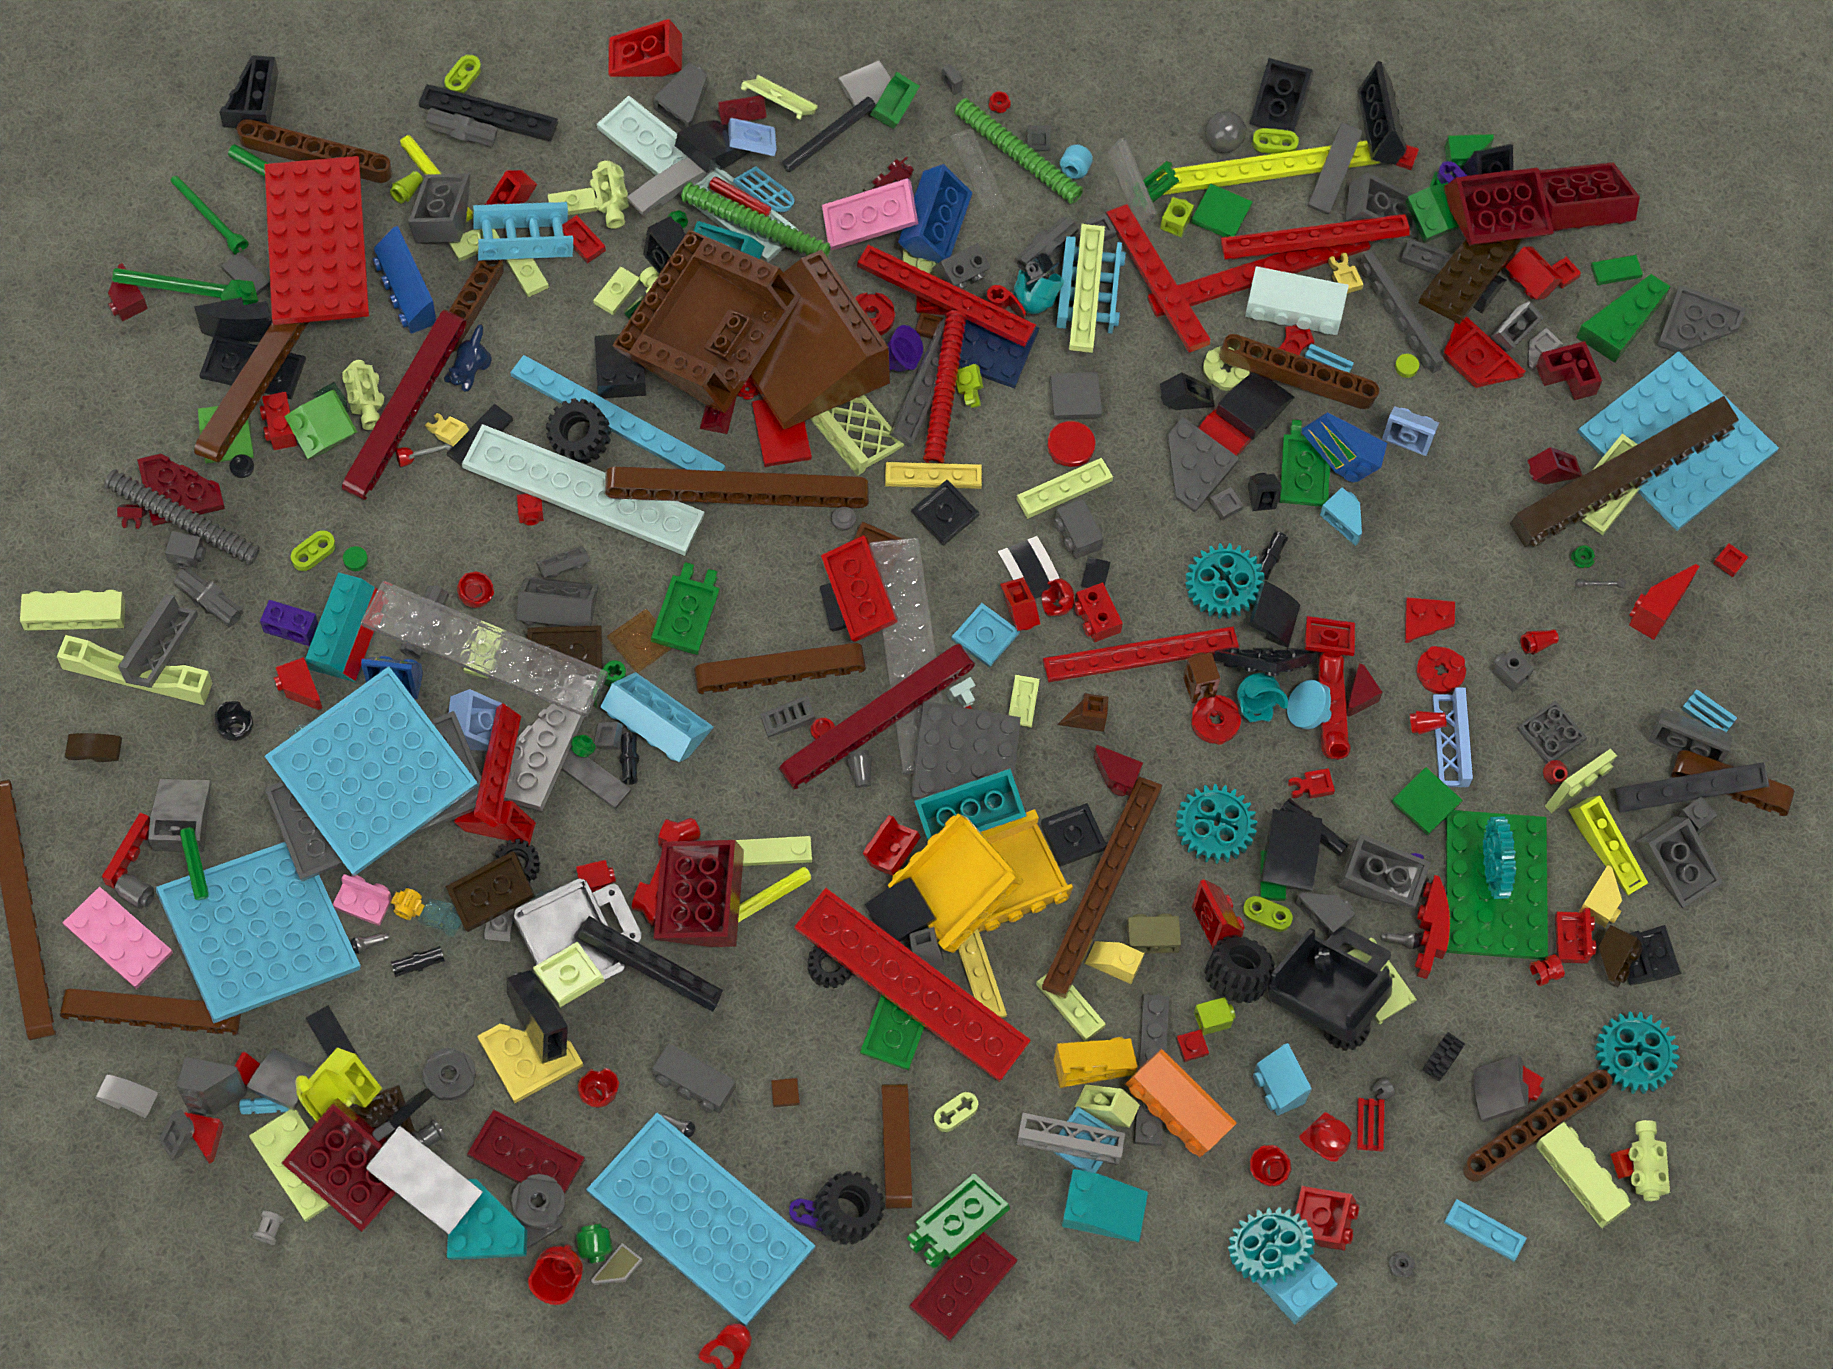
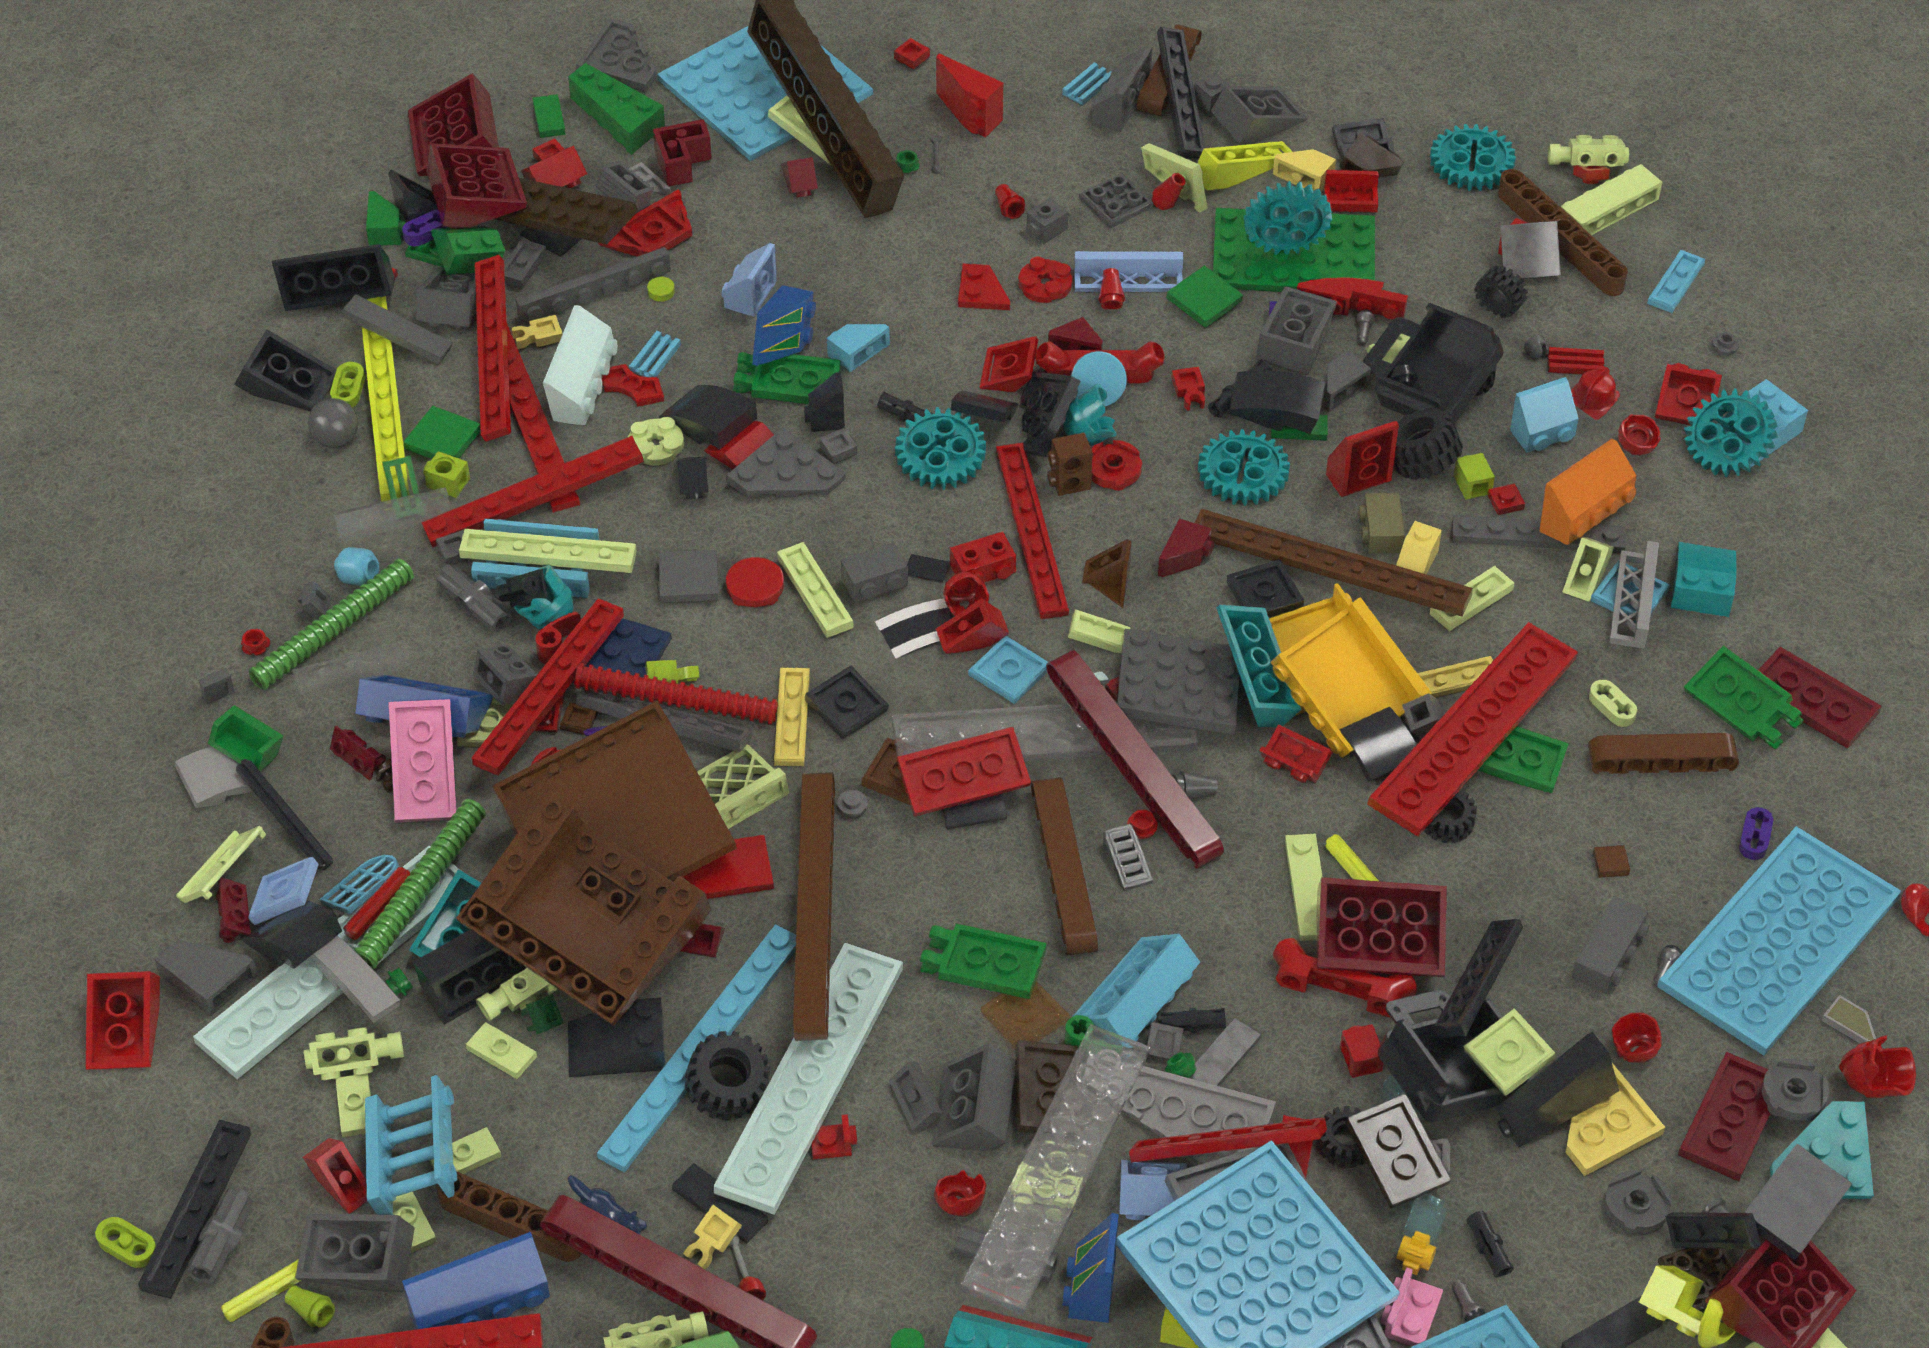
camera: 85 degrees left, 15 degrees down
(584, 240) = (416, 1084): red plate -> none
(594, 1243) = (1829, 1040): green head -> none
(861, 1194) = (1751, 789): black tyre -> none
(1094, 1061) = (1542, 576): yellow wedge -> none
(1267, 915) = (1345, 425): lime plate -> none
(1307, 379) = (671, 371): reddish brown beam -> none
(1548, 969) = (1389, 214): red wheel -> none

